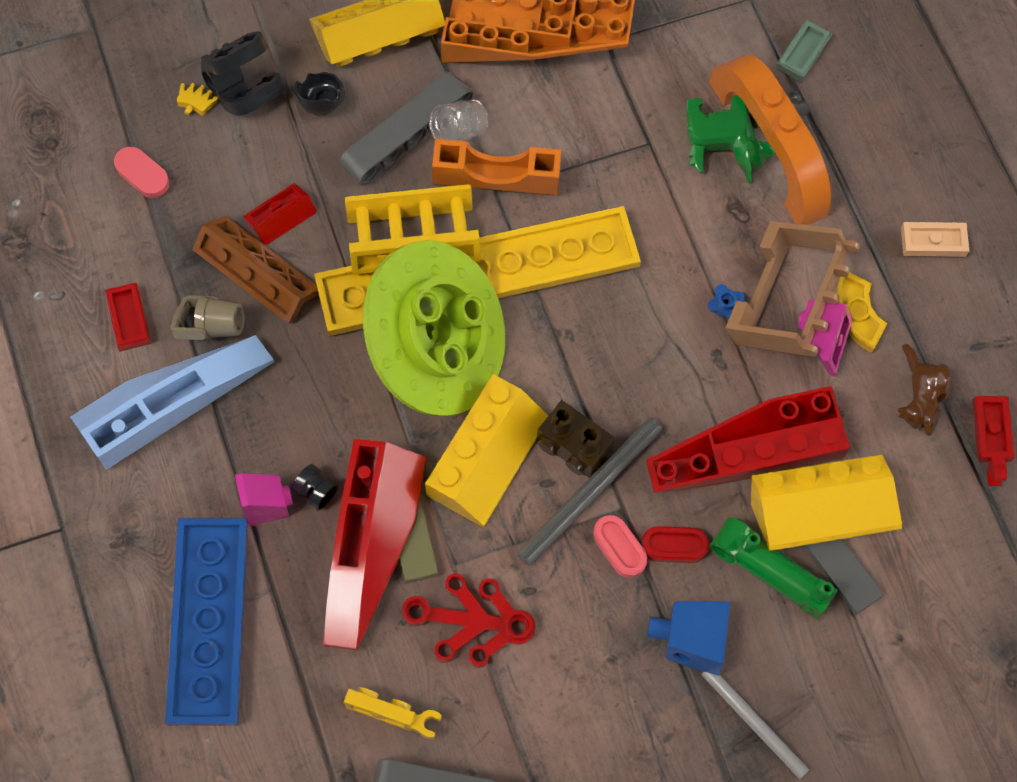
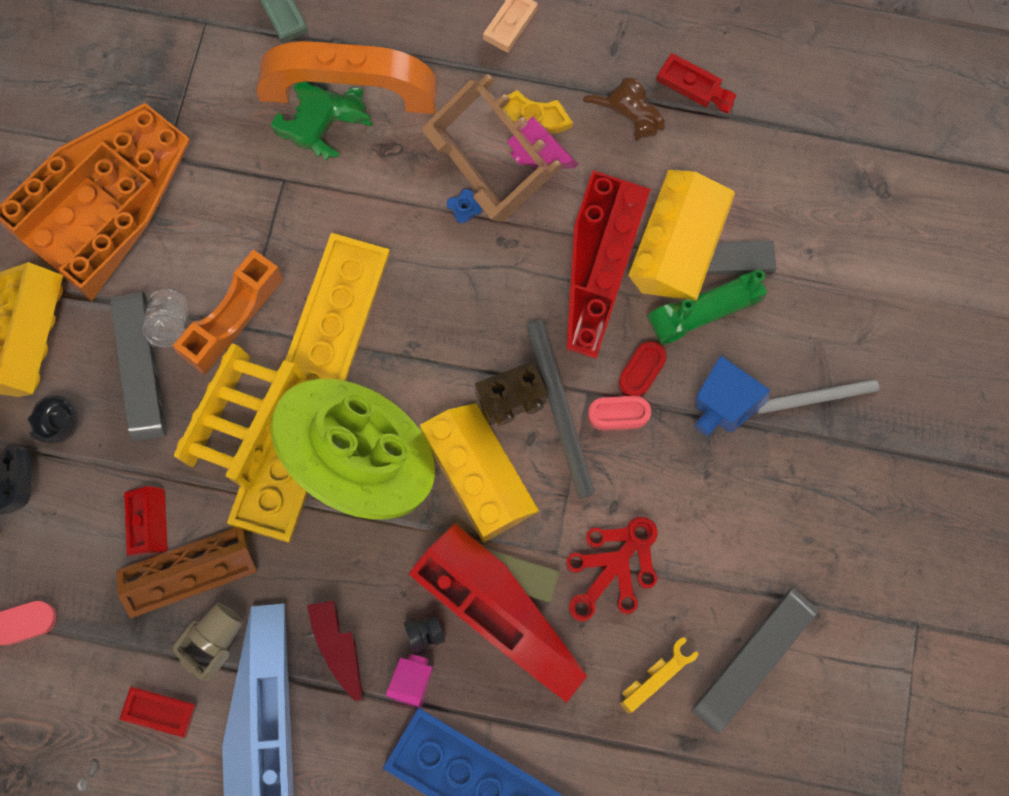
camera: 60 degrees left, 5 degrees up
(259, 424) = (336, 647): none -> dark red slope

